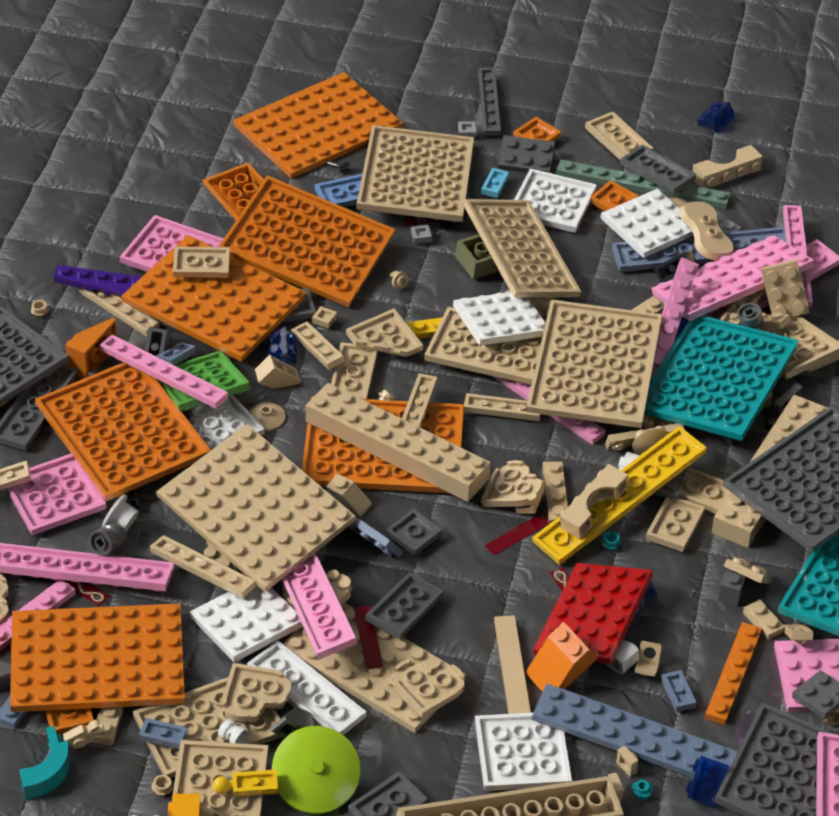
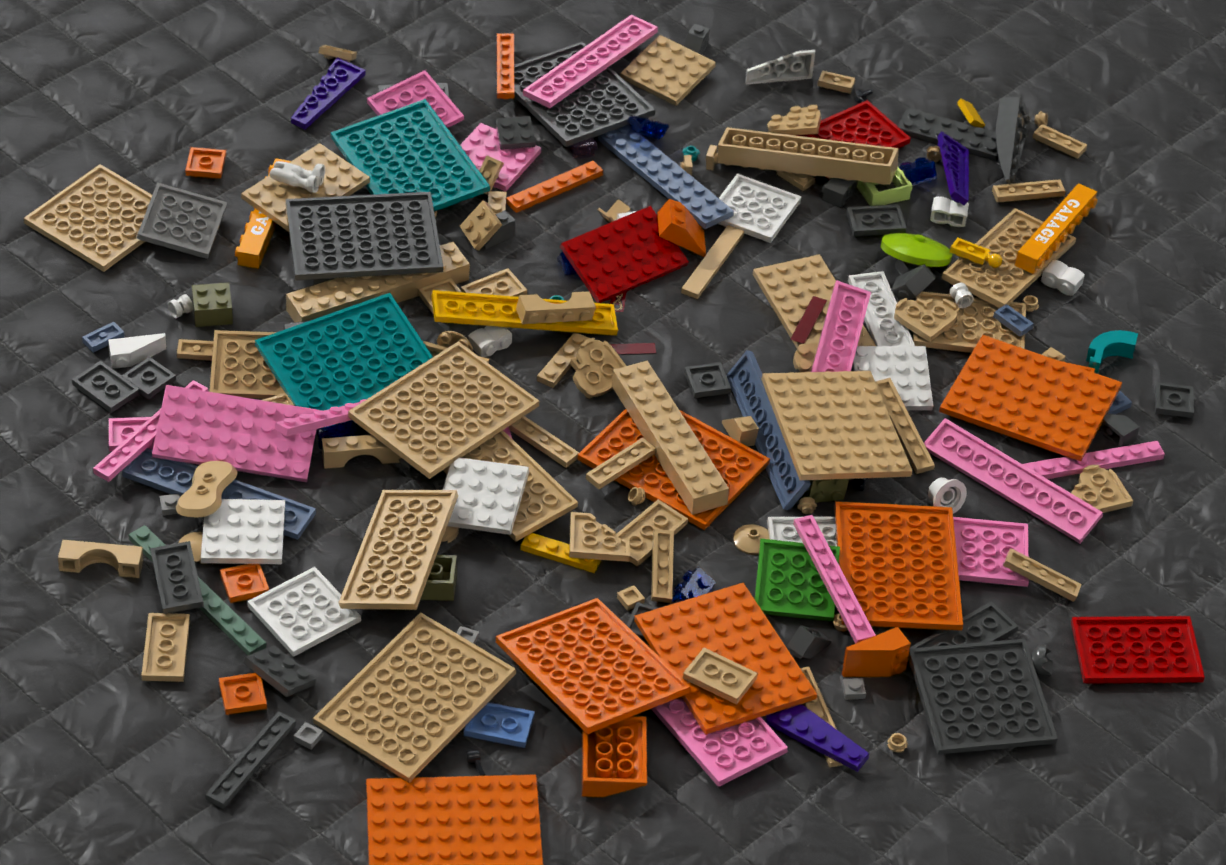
camera: 150 degrees left, 0 degrees up
(82, 735) = (1074, 352): tan plate -> none
(107, 538) = (971, 477): dark grey wheel -> none
(178, 353) = (789, 625): sand blue plate -> none
(276, 373) = (719, 560): tan slope -> none
(399, 279) = (530, 597): tan plate -> none
(404, 605) = (763, 325): dark grey plate -> none
(427, 686) = (794, 261): tan plate -> none
(494, 183) = (340, 658): medium azure plate -> none
(667, 270) = (266, 476): black slope -> none
(678, 691) = (608, 190): sand blue plate -> none
(717, 115) = (42, 622): clear blue bracket -> none
(751, 316) = (268, 383): dark grey wheel -> none
(776, 320) = (240, 386): tan plate -> none
(785, 288) = (212, 382): tan plate -> none

